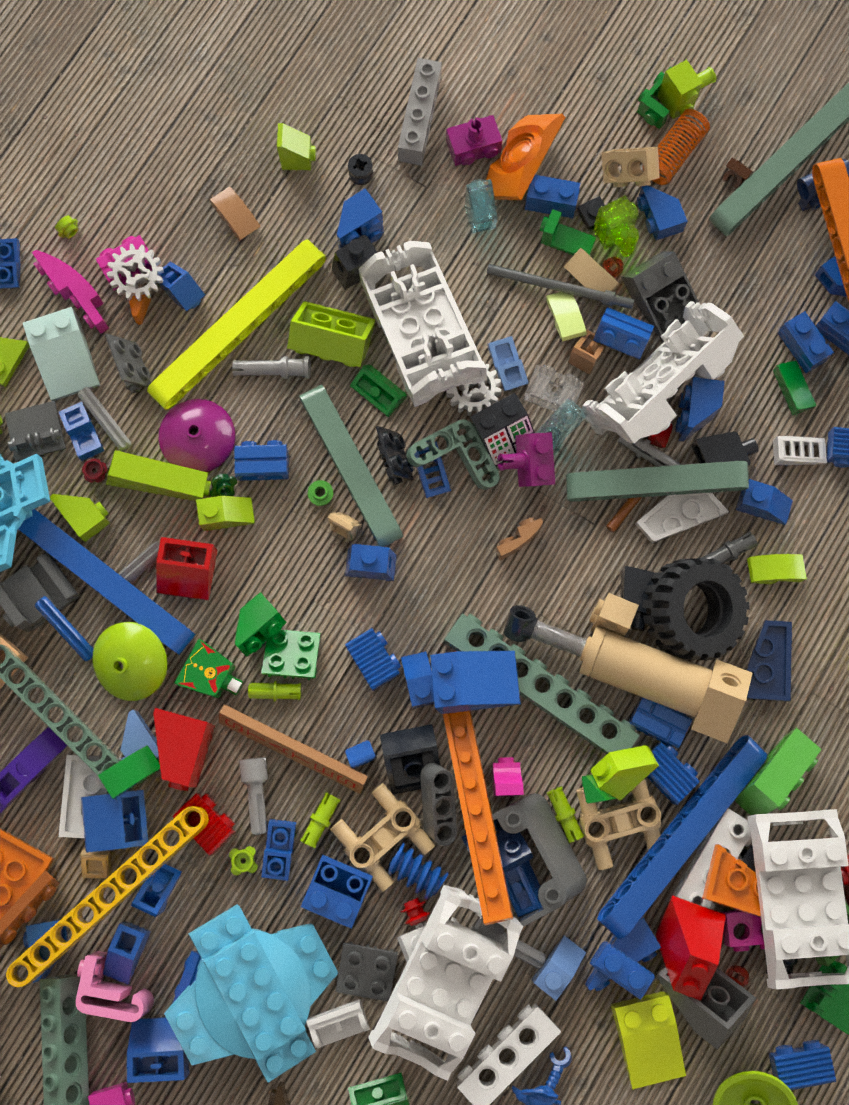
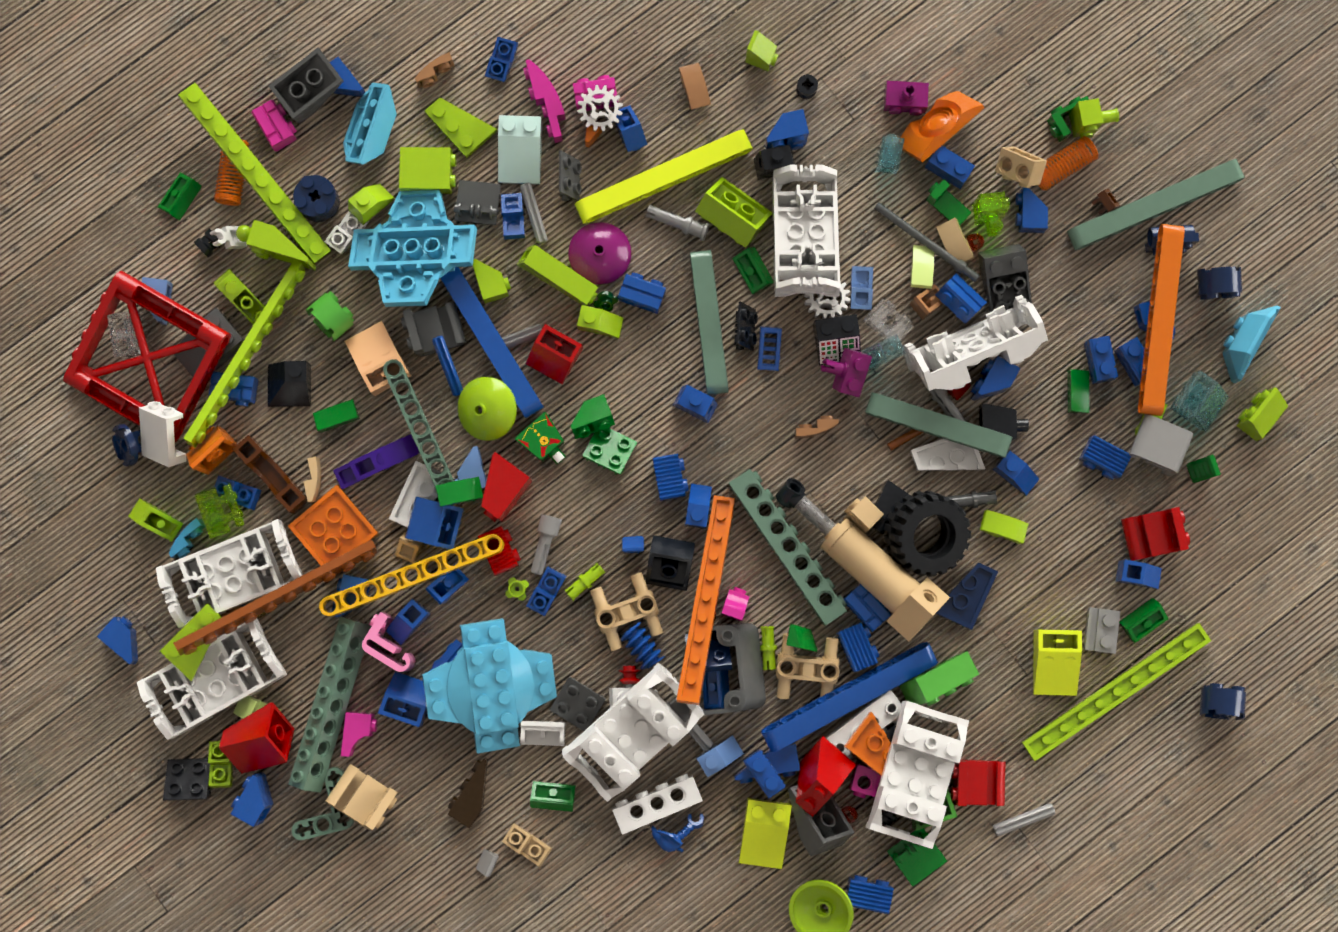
camera: 20 degrees right, 5 degrees up
(67, 227) = (559, 47): lime plate -> none
(88, 468) = (513, 245): dark red plate -> none
(274, 691) = (586, 472): lime axle -> none
(292, 749) = (584, 521): medium nougat tile -> none
(323, 500) = (677, 341): bright green plate -> none
(337, 891) = (578, 637): blue slope -> none
(344, 525) = (687, 366): tan slope -> none
(419, 111) = (872, 57): light grey brick -> none
(445, 814) = (674, 594): dark grey beam -> none
(456, 442) = (795, 334): sand green beam -> none
(474, 680) = (739, 522): blue slope -> none
(589, 210) = (975, 188): black plate -> none
(623, 770) = (824, 631): lime slope -> none
(780, 454) = (1043, 442): white slope -> none

